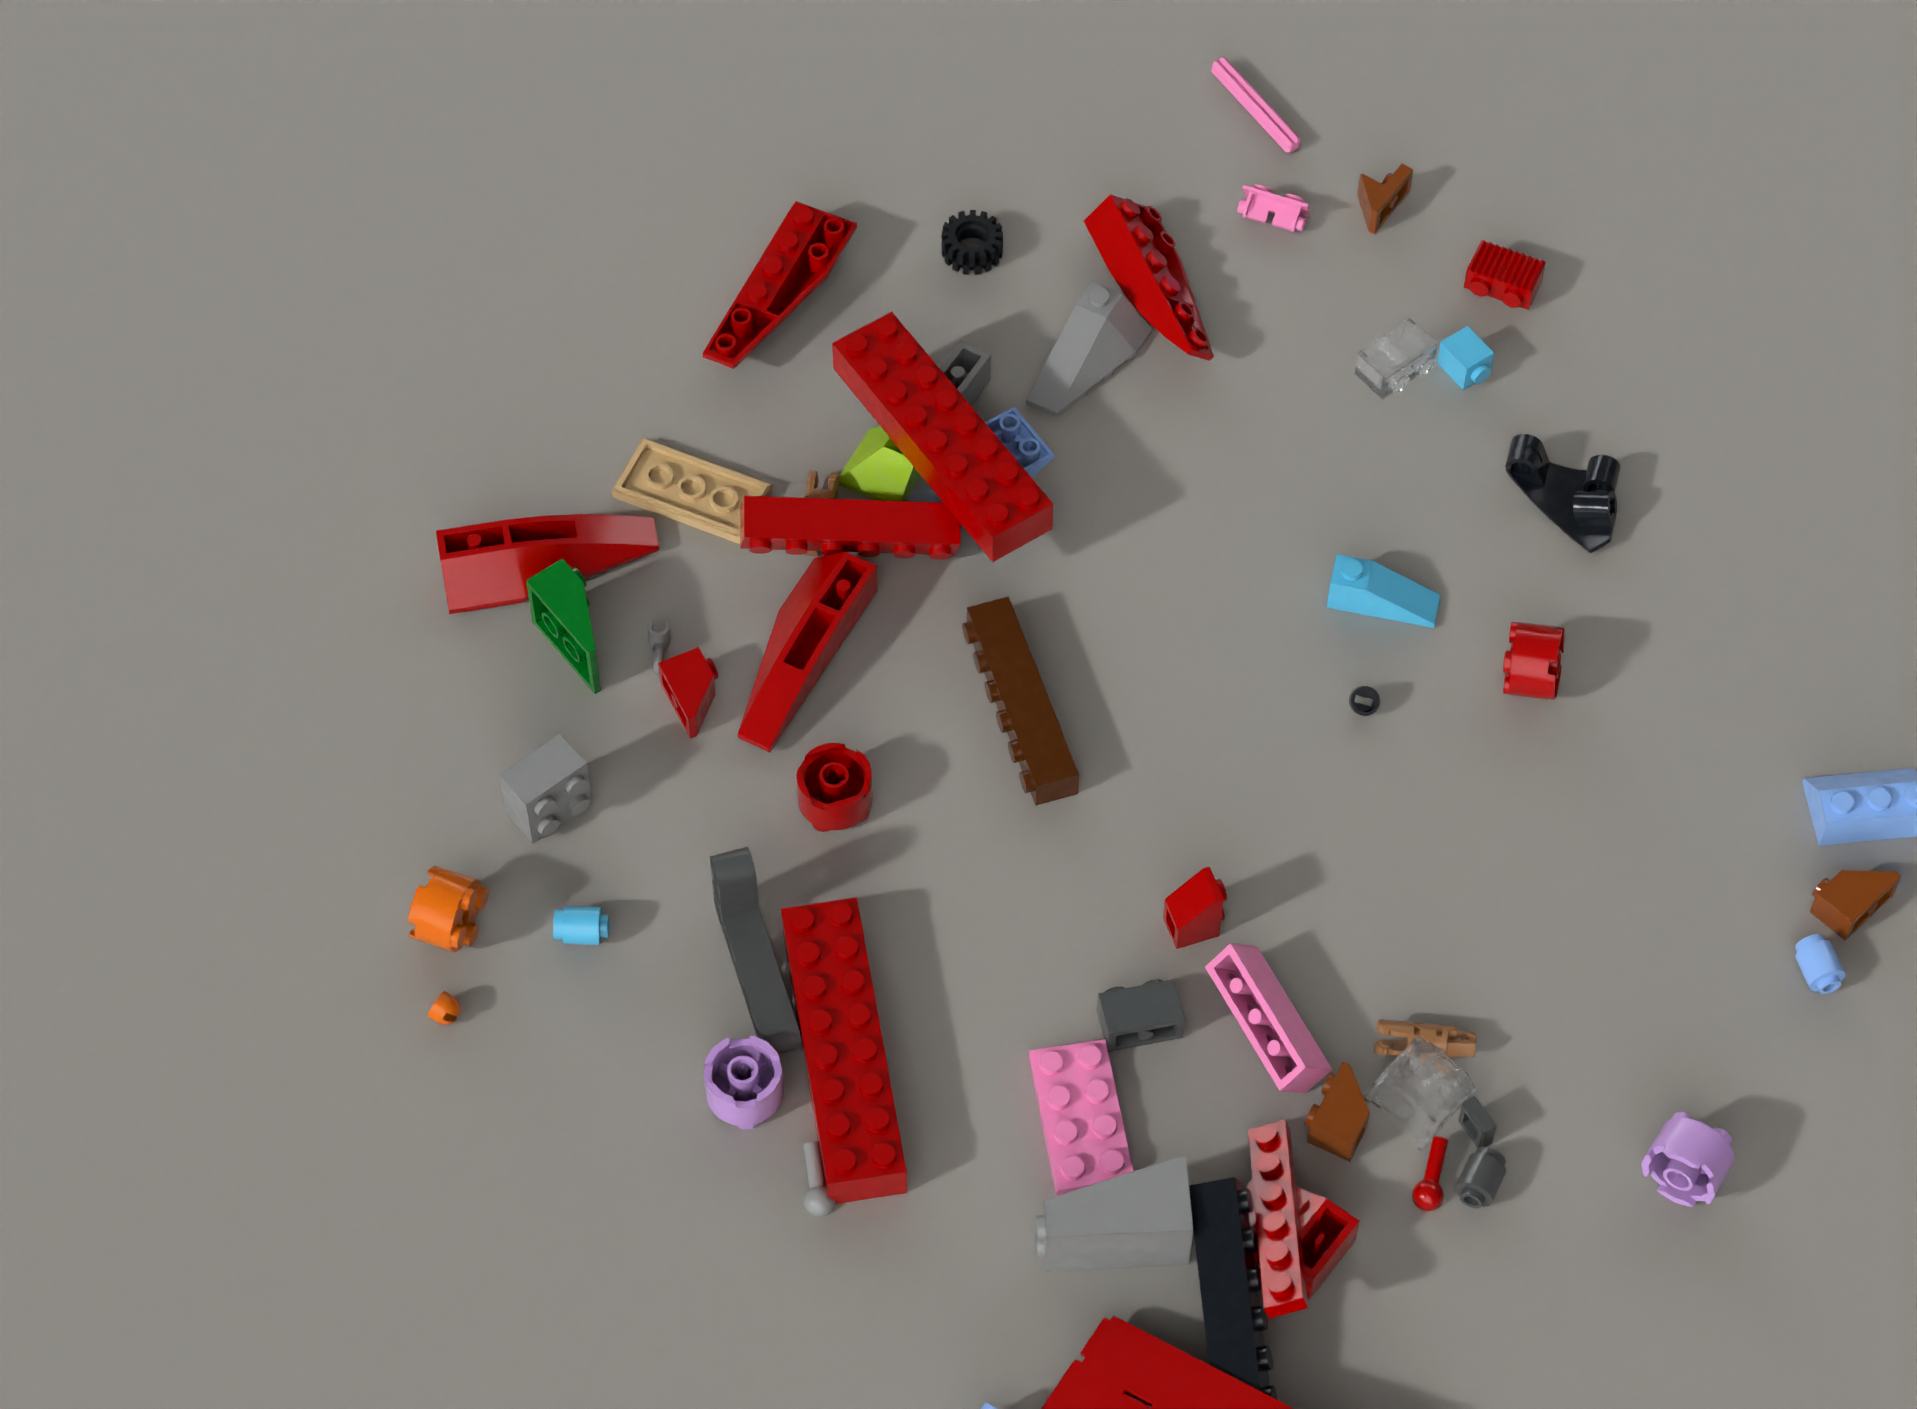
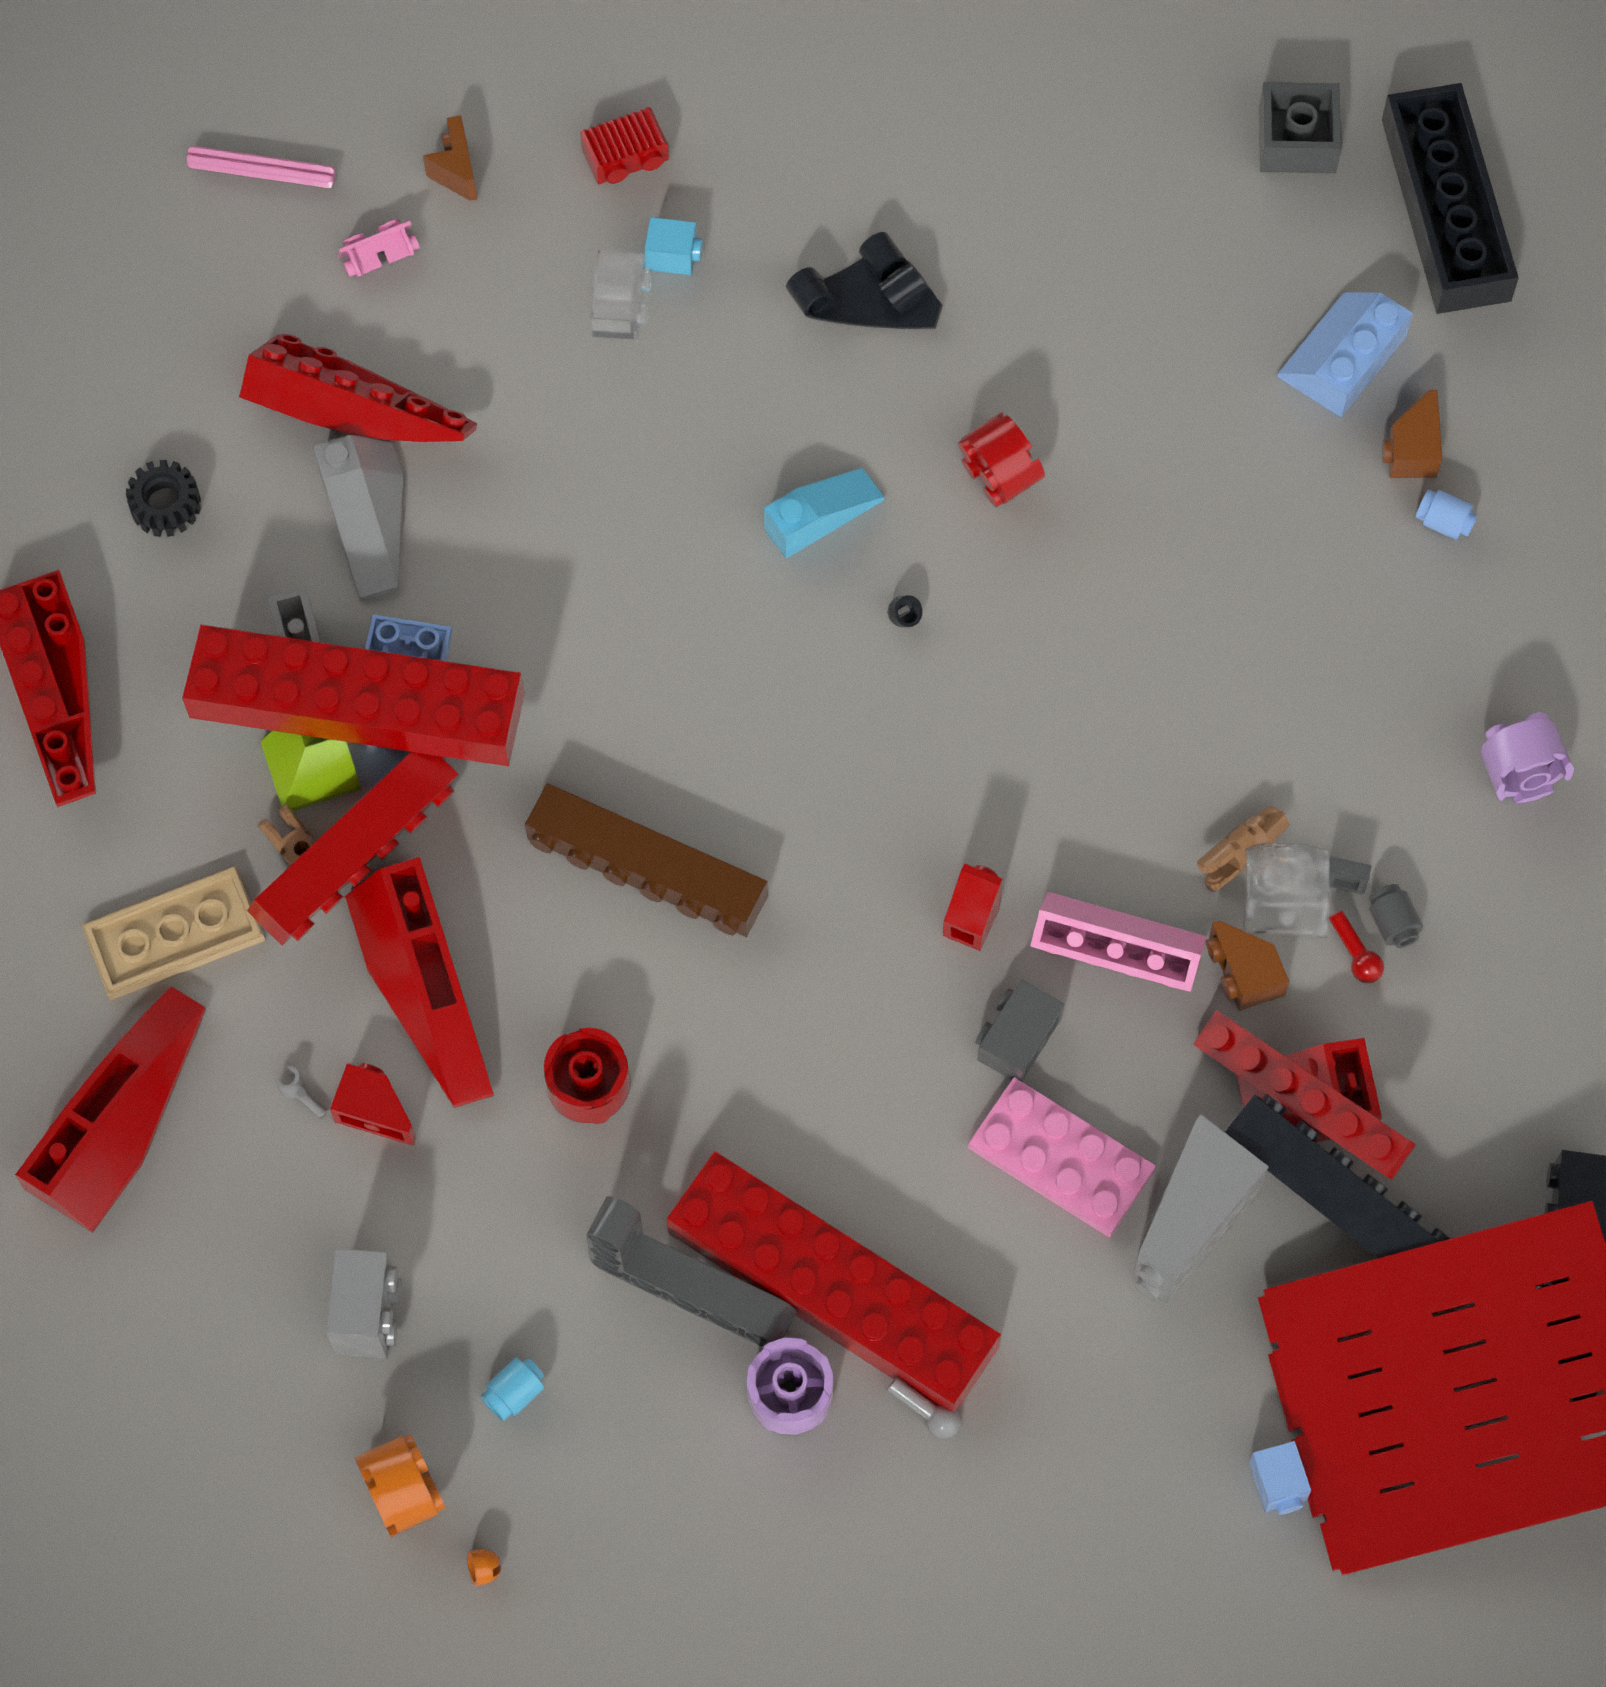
camera: 45 degrees left, 10 degrees up
(563, 617) = (207, 1142): green slope -> none

